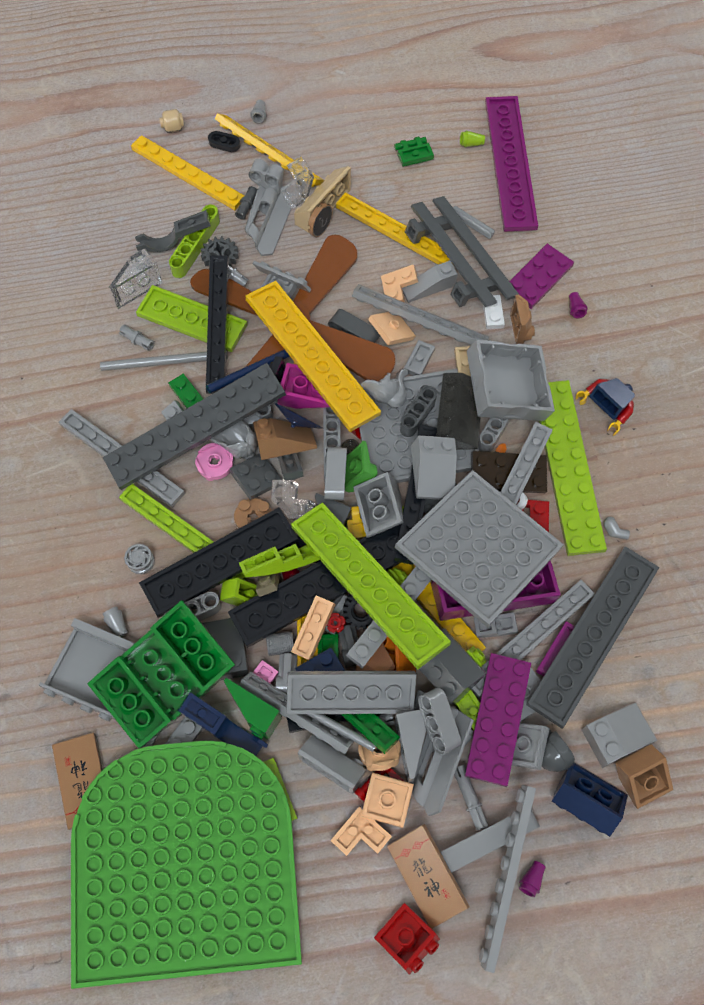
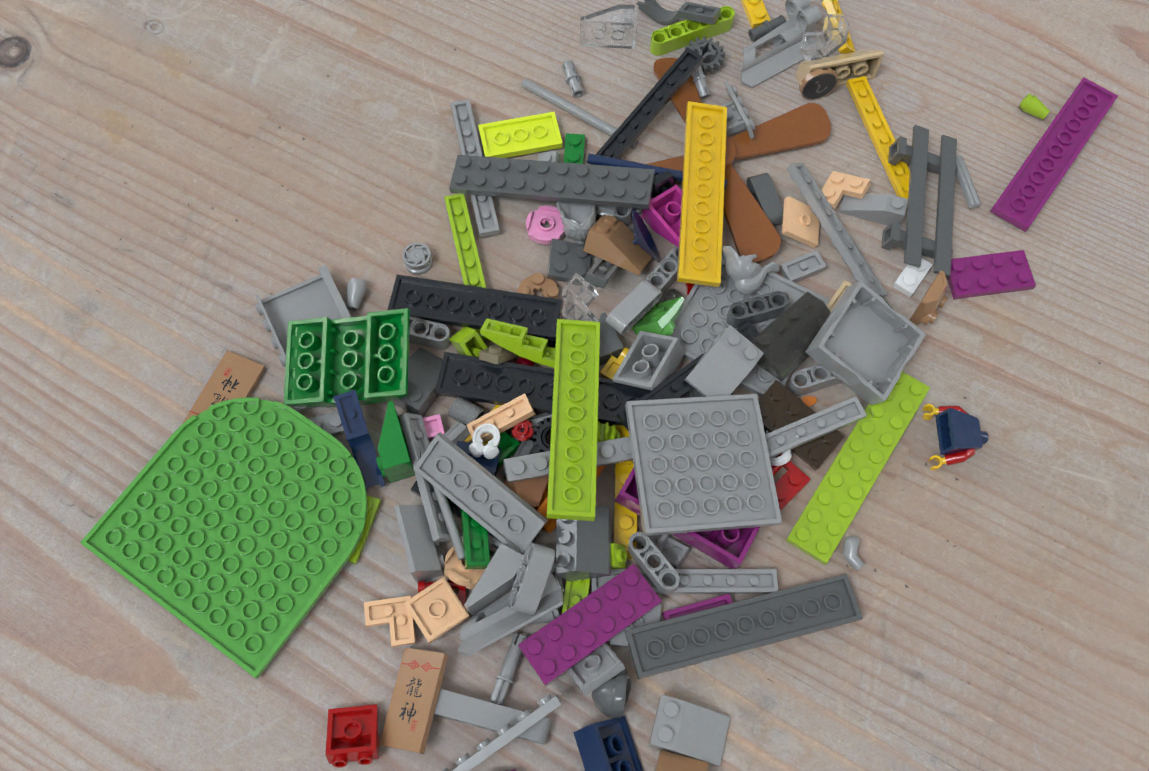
camera: 40 degrees right, 0 degrees up
(135, 409) = (520, 136): none -> neon yellow plate
(185, 316) = (628, 89): lime plate -> none
(317, 661) = (490, 450): none -> white piece
(414, 151) = (966, 82): green plate -> none
(513, 639) = (649, 552): none -> light grey beam
(577, 306) = (1001, 327): magenta cone -> none

